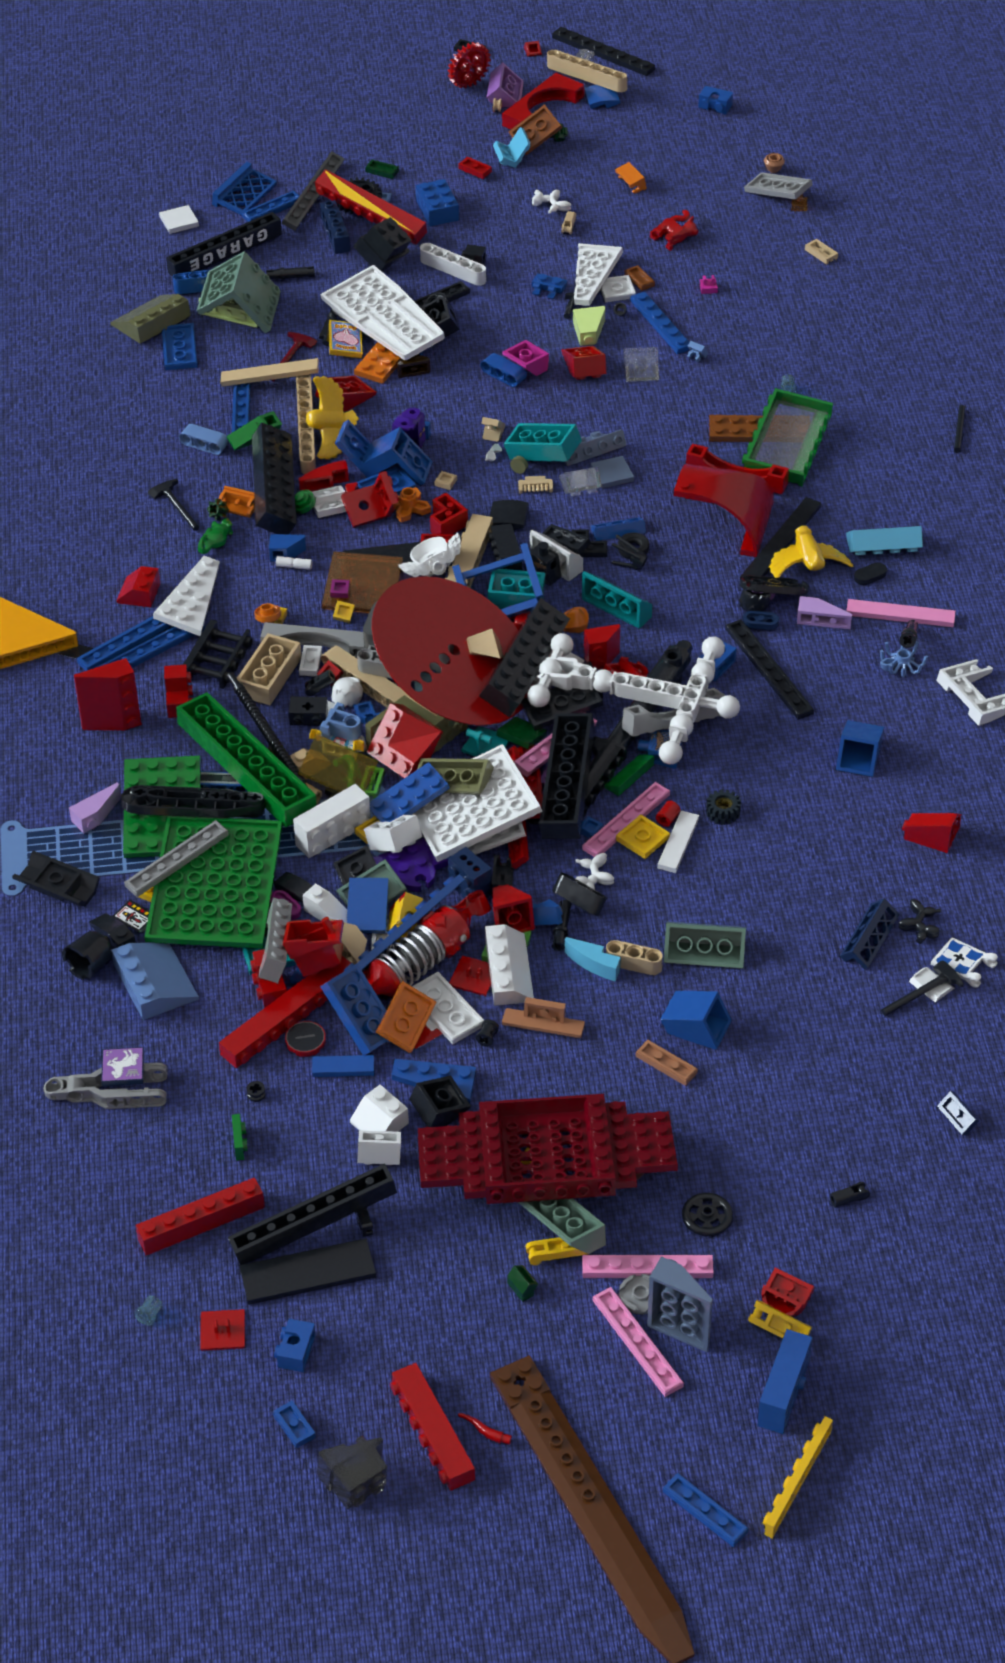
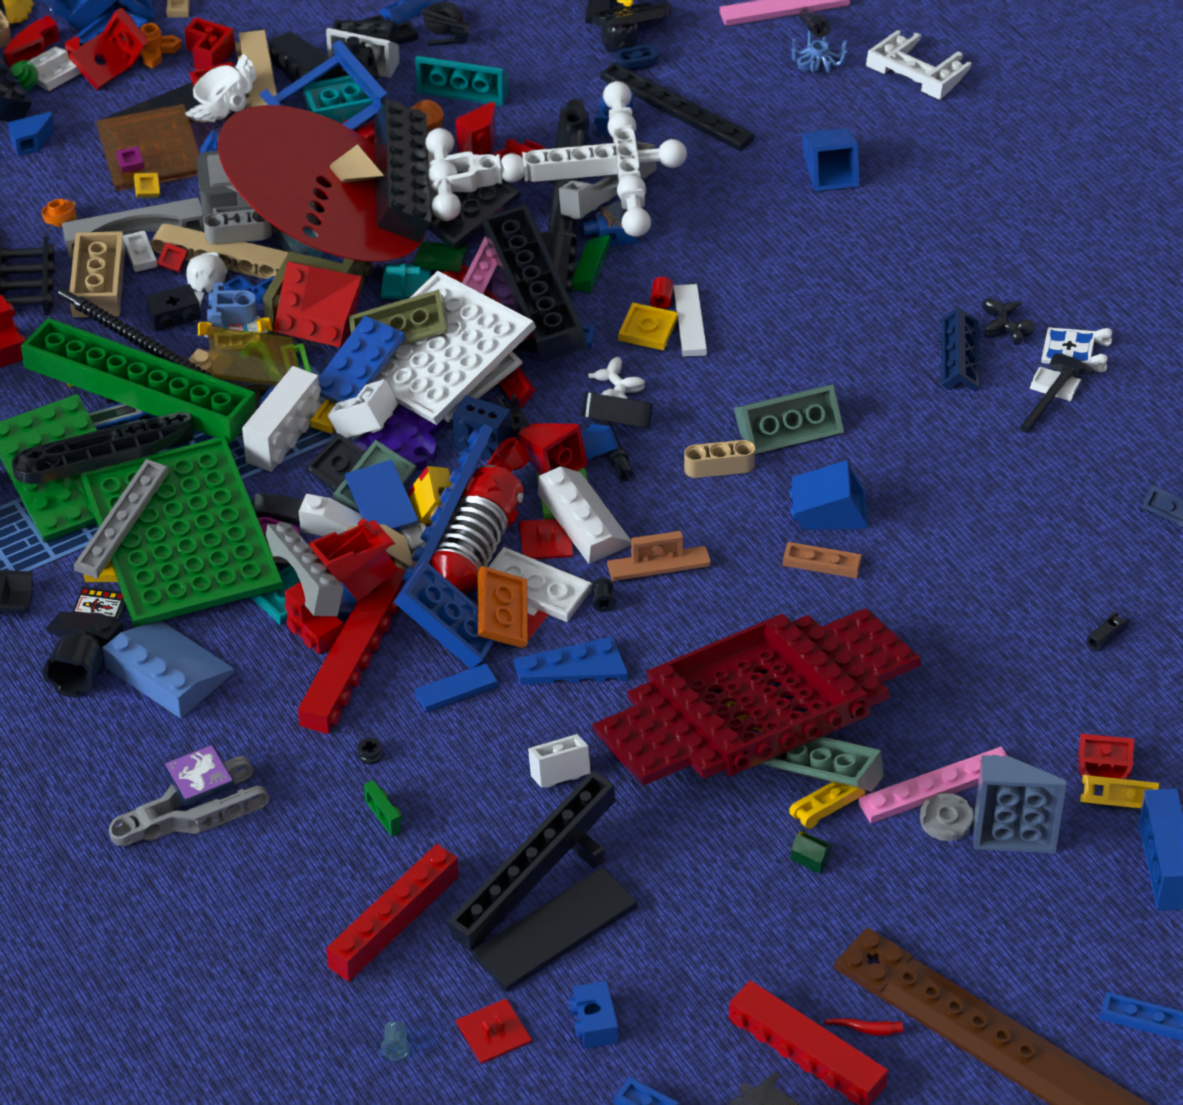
camera: 25 degrees left, 0 degrees up
(297, 563) = (53, 148): white piece -> none
(305, 1038) = (392, 672): black tile -> none
(320, 682) = (167, 272): black bar -> none
(380, 1112) = (534, 722): white slope -> none
(439, 1101) = (596, 687): black slope -> none
(510, 512) = (277, 21): black slope -> none
(593, 958) = (673, 474): medium azure slope -> none
(638, 1342) = (975, 868): bright pink tile -> none
(641, 805) = (606, 335): bright pink tile -> none
(707, 1229) = (970, 688): black plate -> none
(723, 799) = (718, 267): black bush -> none
(820, 613) = (701, 30): lavender slope -> none
(932, 829) = (962, 220): red slope -> none

